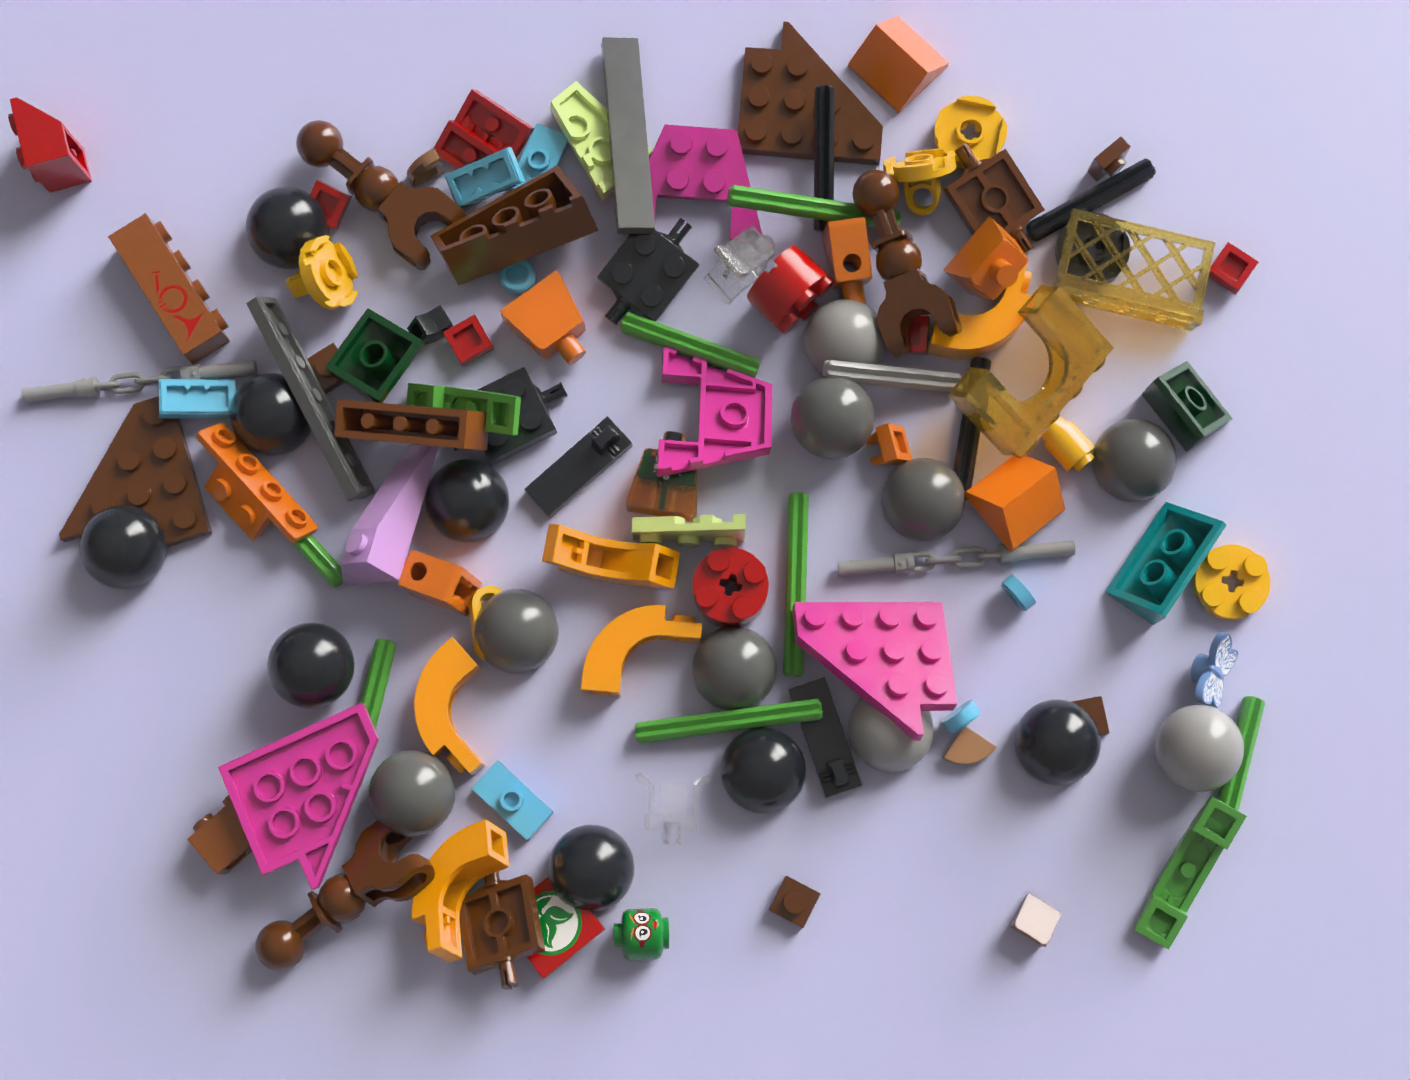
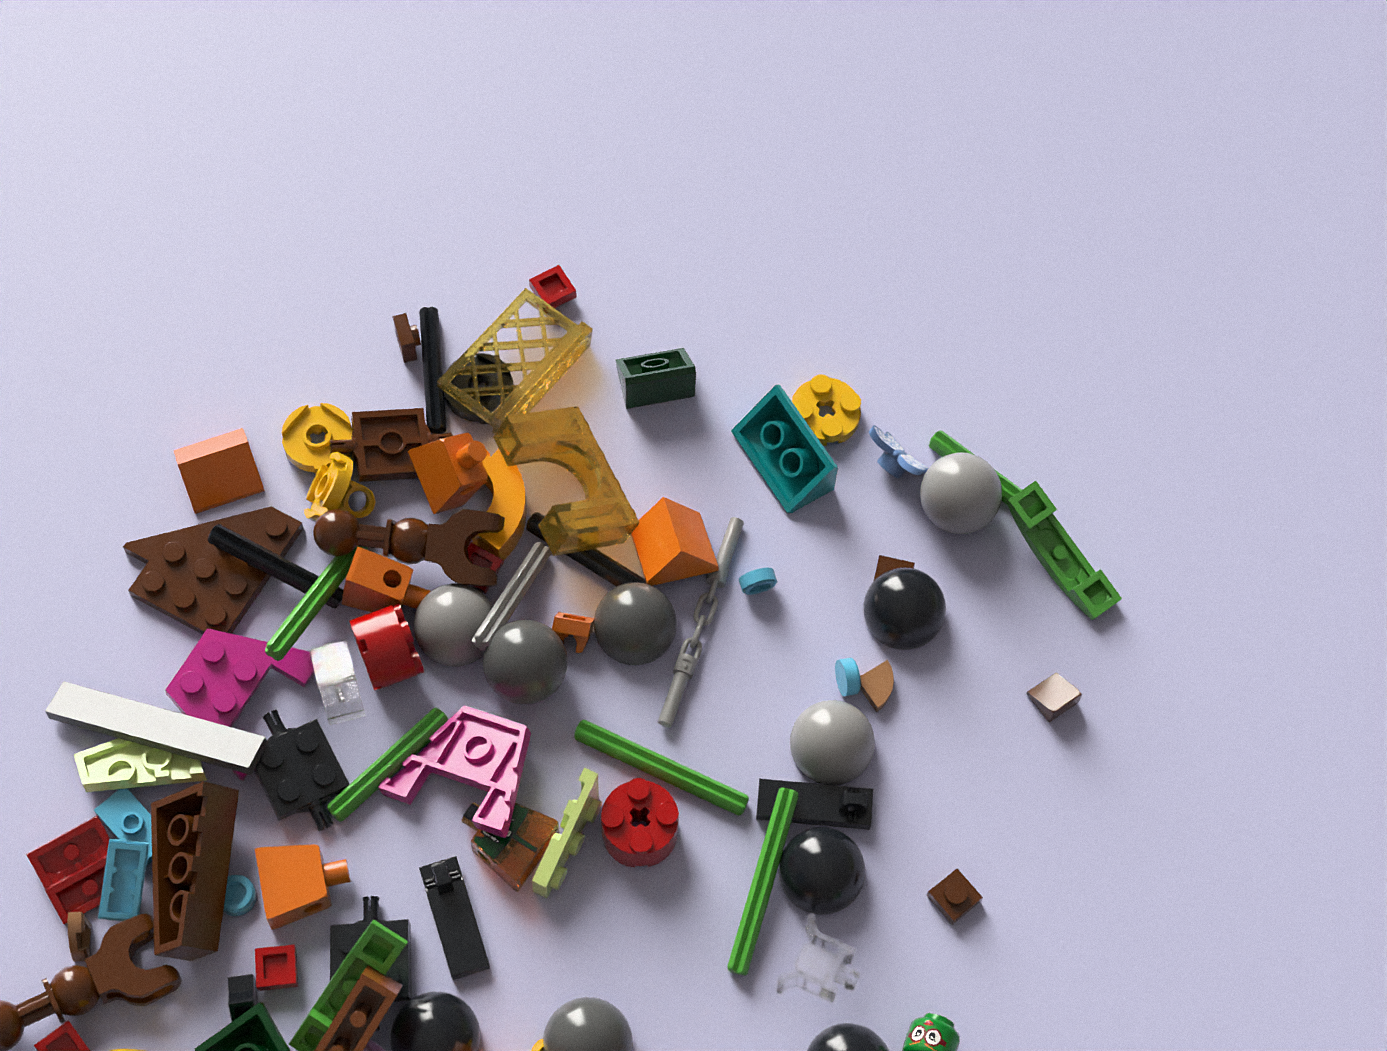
camera: 70 degrees left, 15 degrees down
(610, 560) = (564, 918): light orange arch -> none
(624, 634) = (650, 963): light orange arch -> none
(734, 668) = (715, 855): dark grey piece -> none
(885, 653) = (762, 712): wing -> none
(1068, 445) = (645, 482): yellow brick -> none
(1134, 460) = (683, 437): dark grey piece -> none

